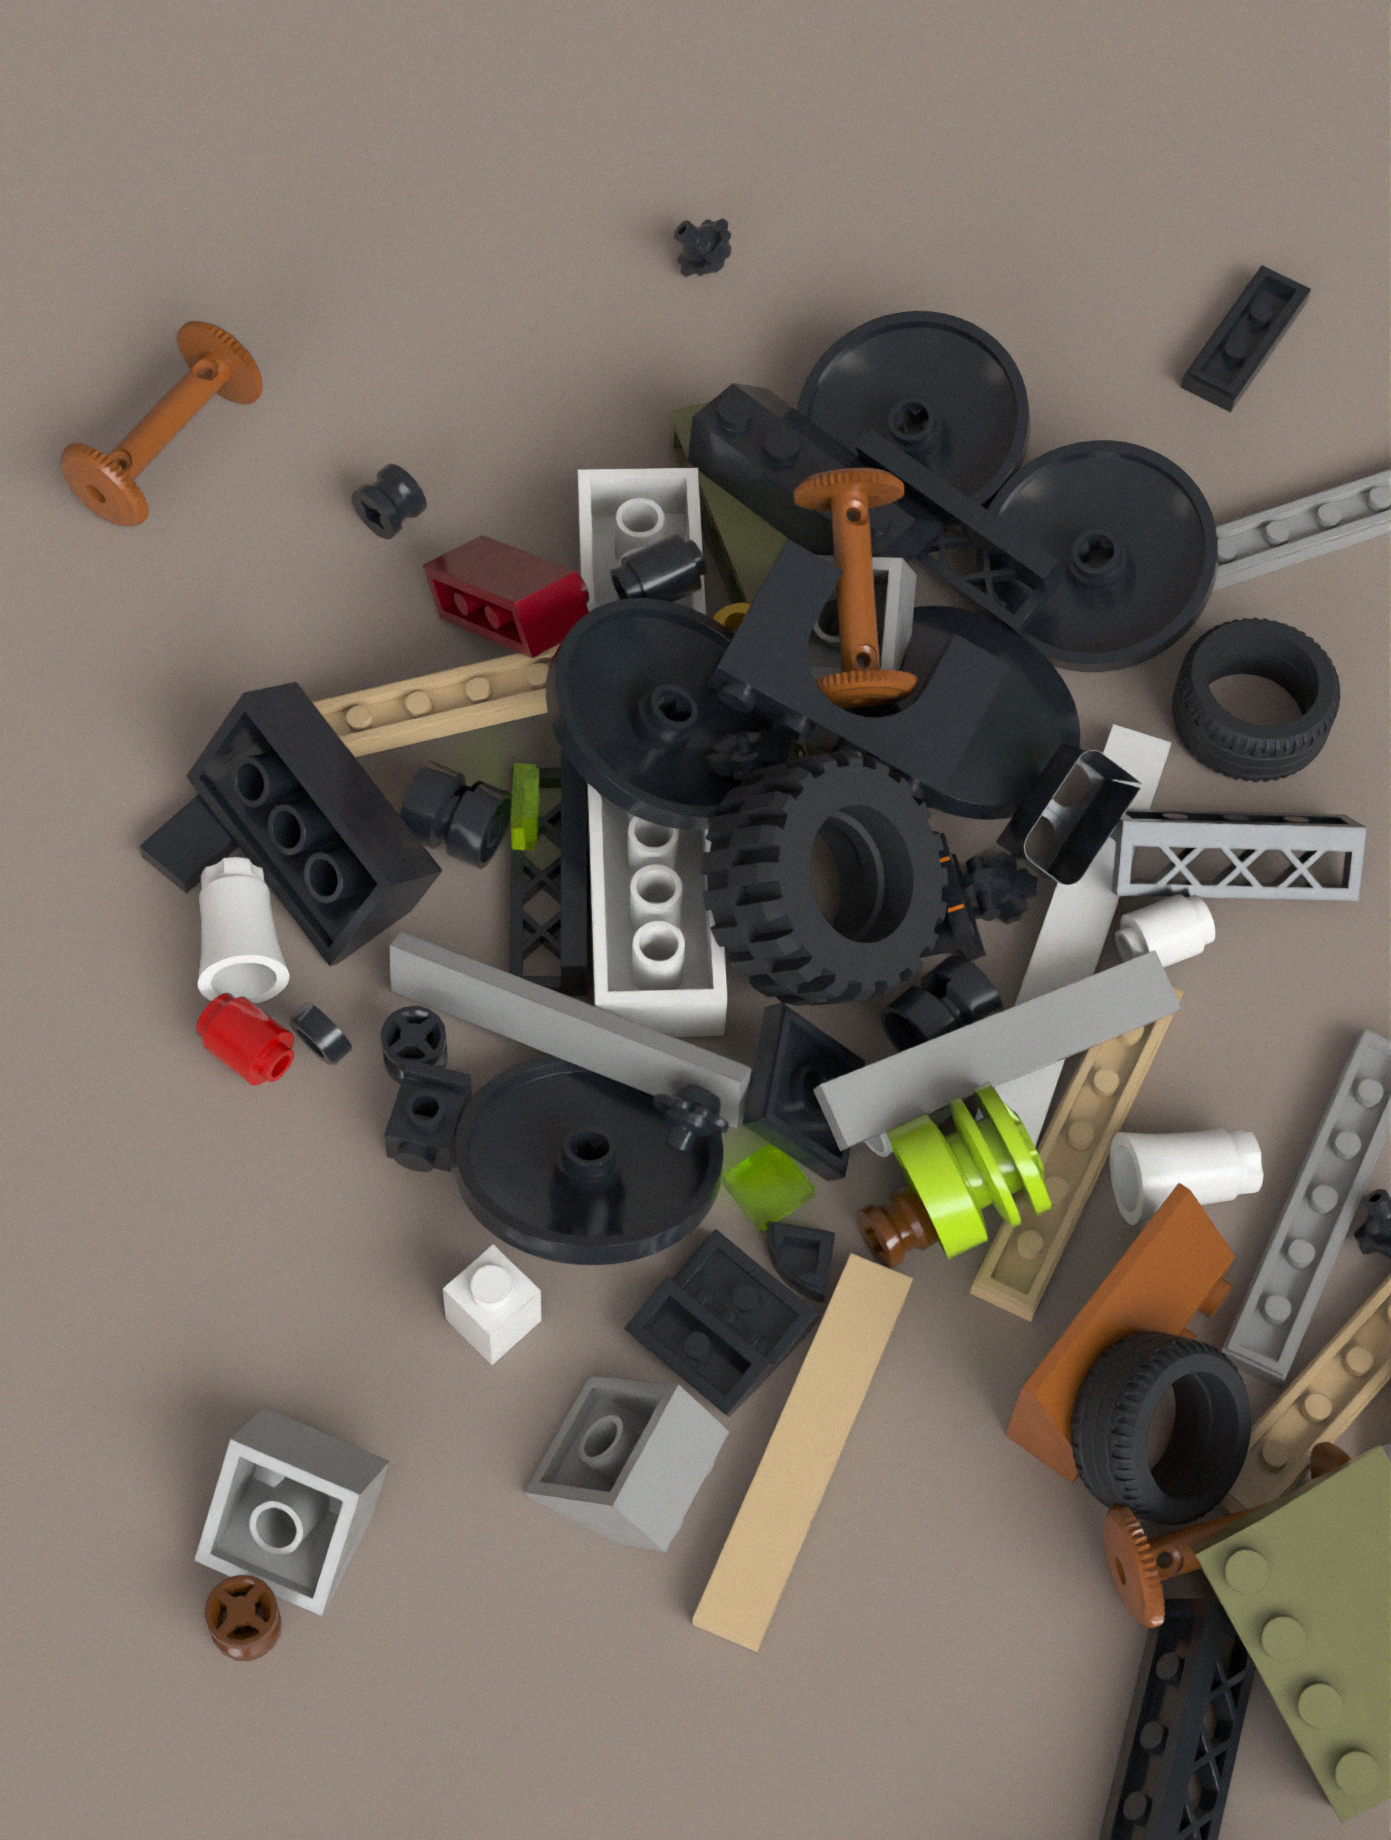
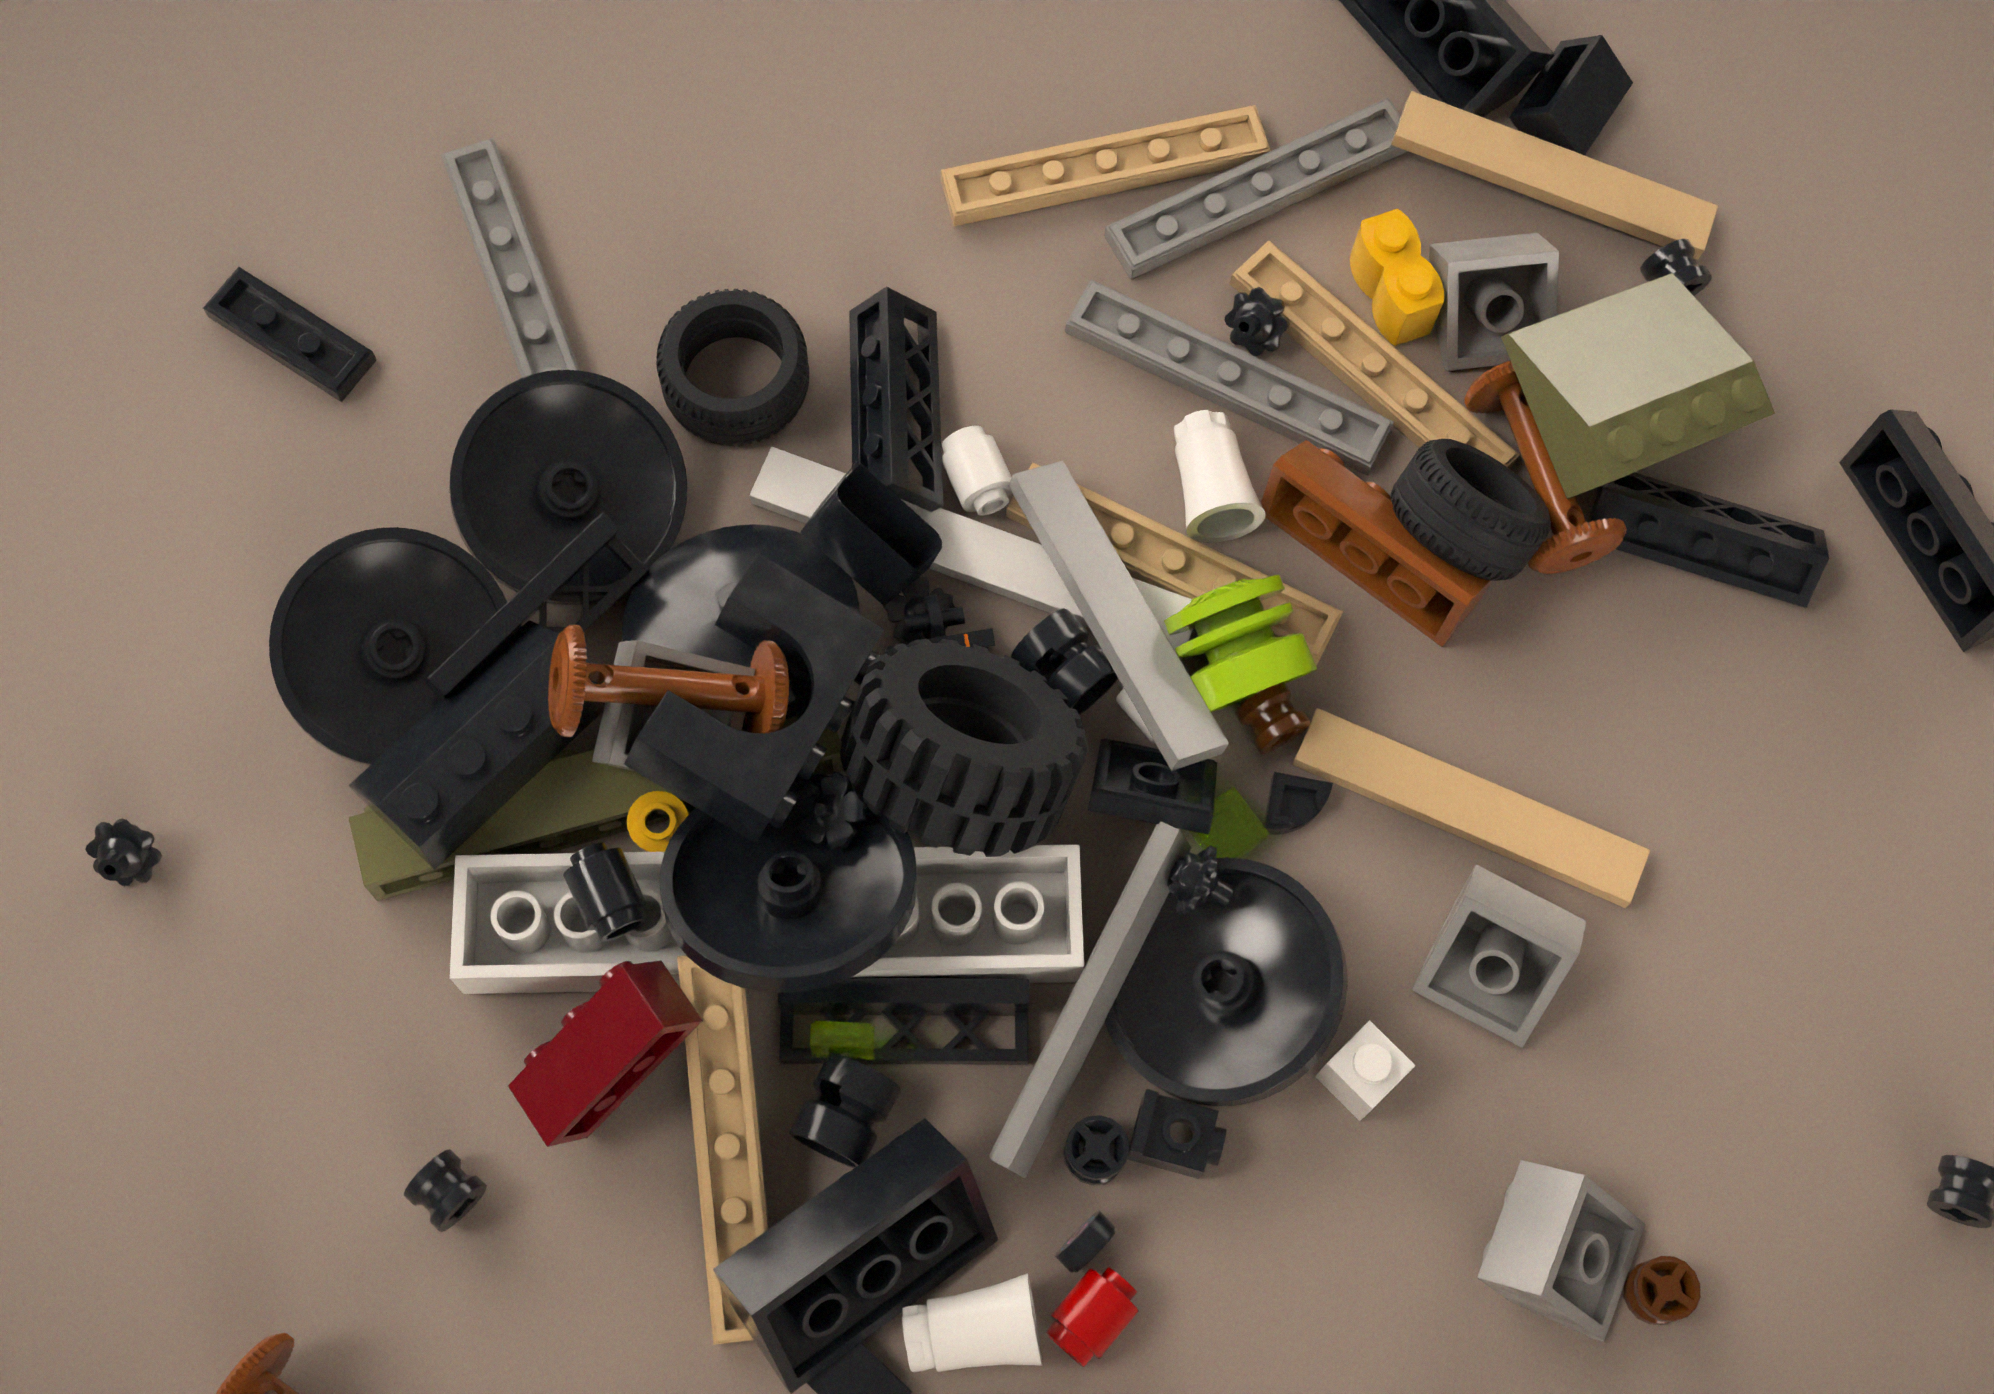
camera: 90 degrees left, 10 degrees up
(722, 1323) = (1363, 871): black slope -> none

